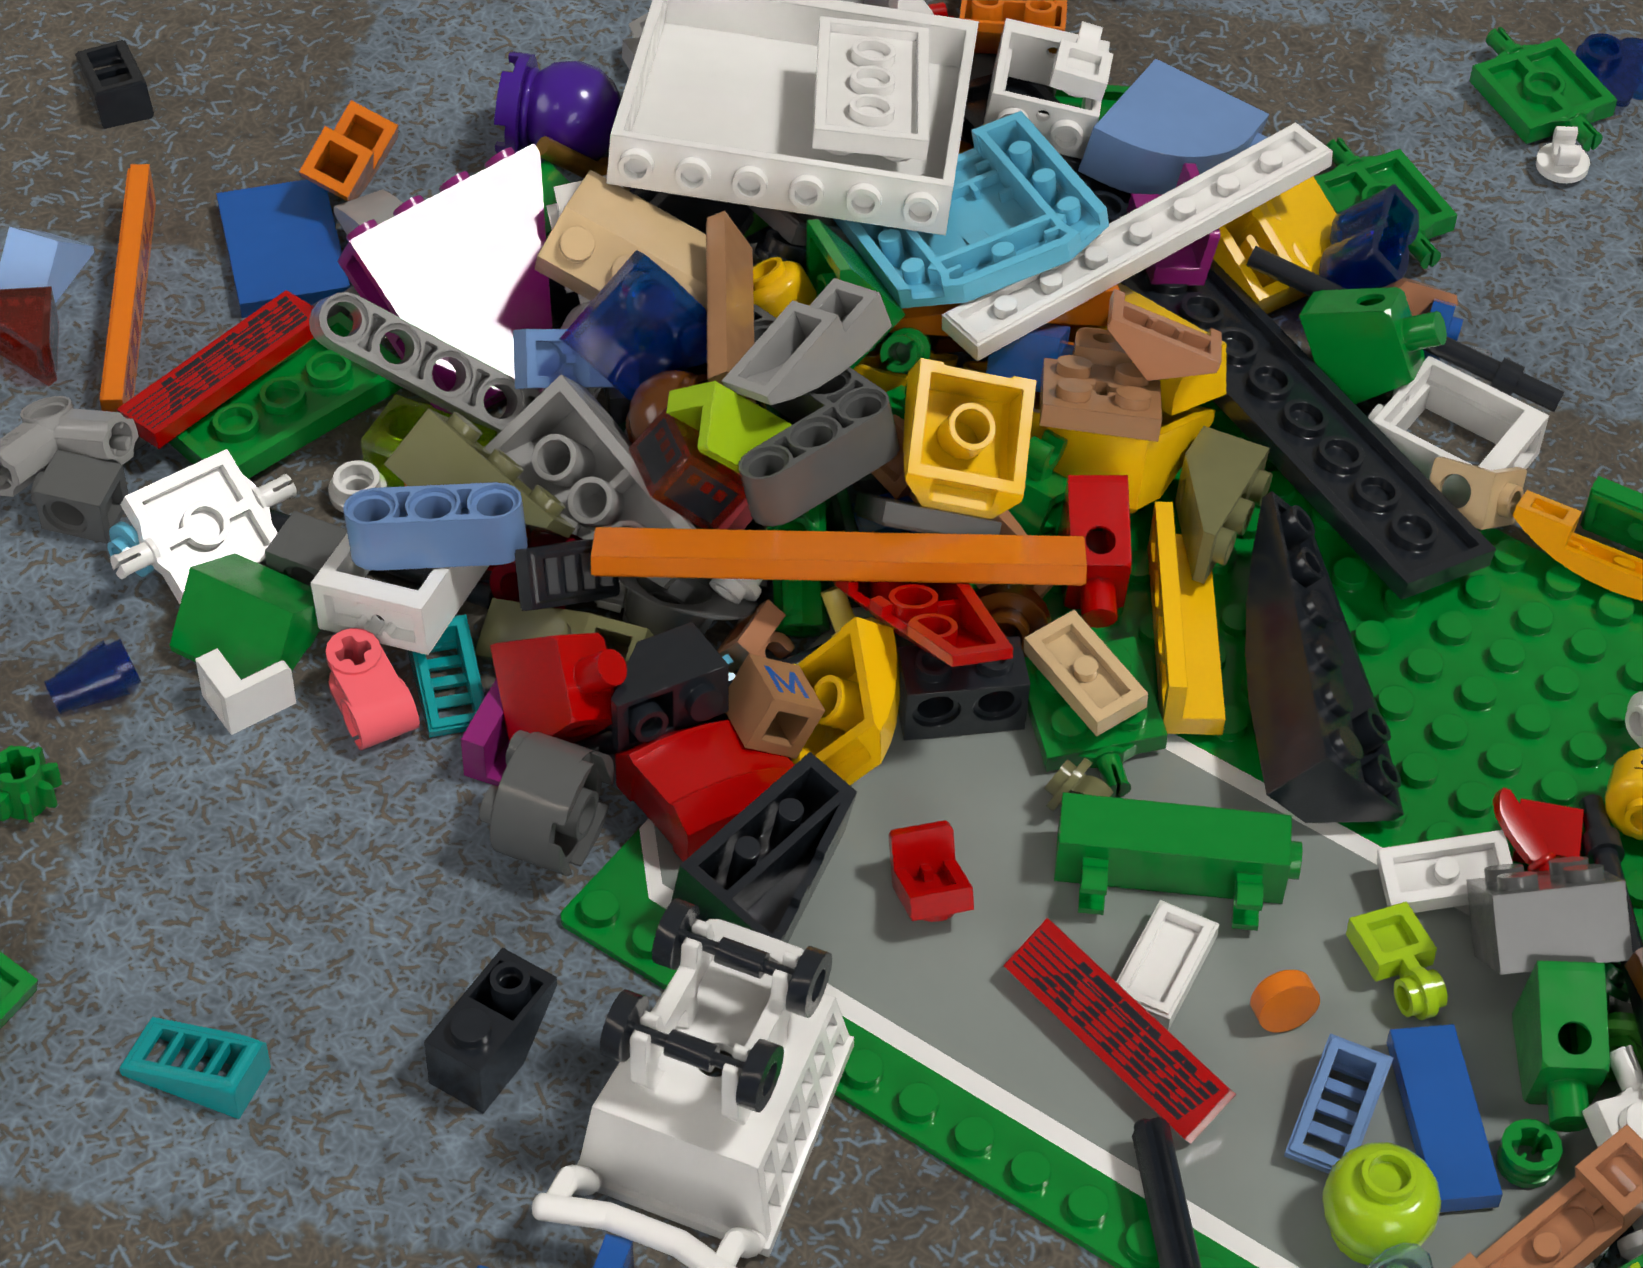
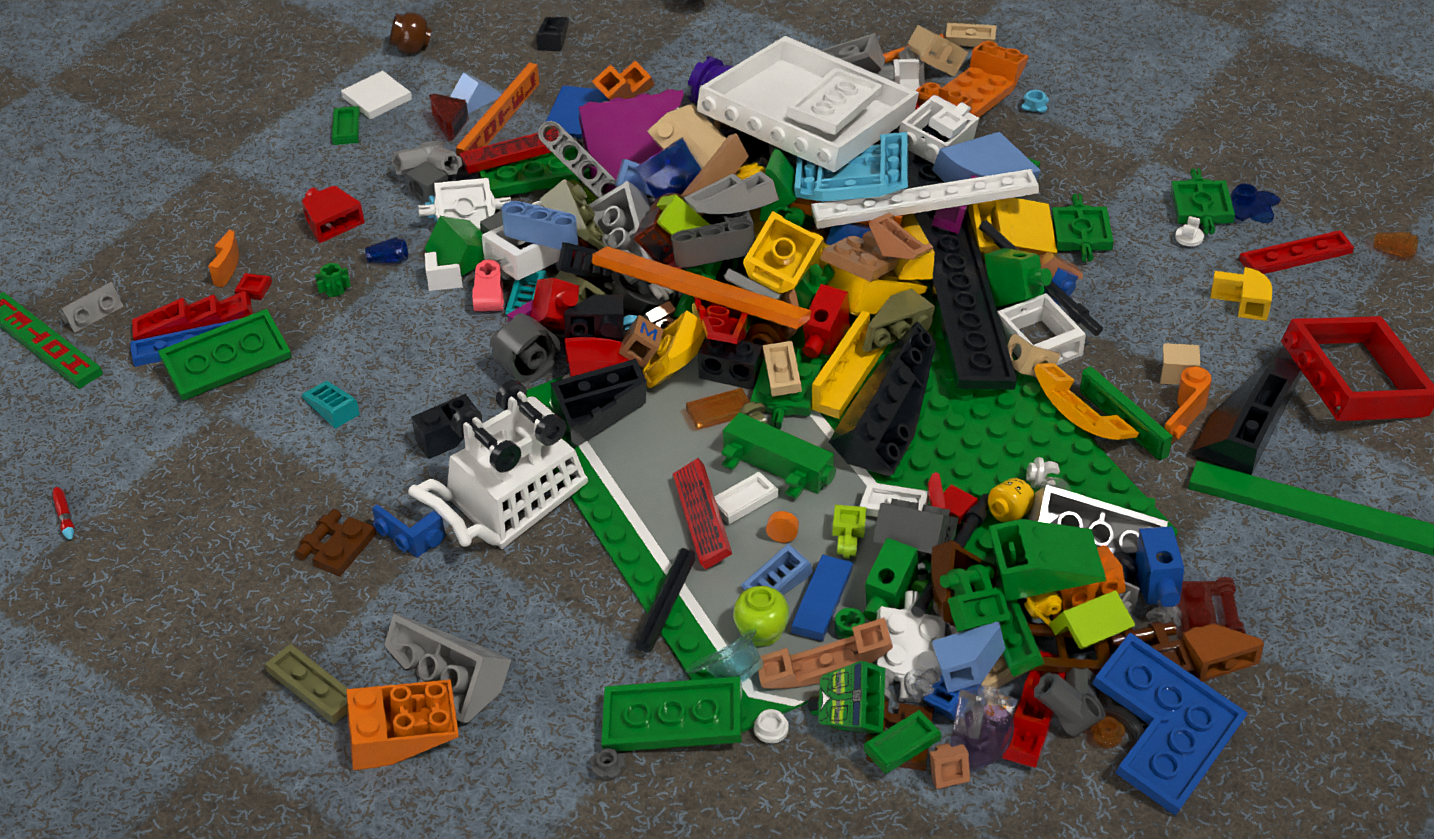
camera: 30 degrees right, 5 degrees down
(927, 872) = (665, 426): red bracket -> none
(993, 793) = (716, 408): none -> clear orange tile
(1371, 241) = (1050, 235): clear blue brick -> none

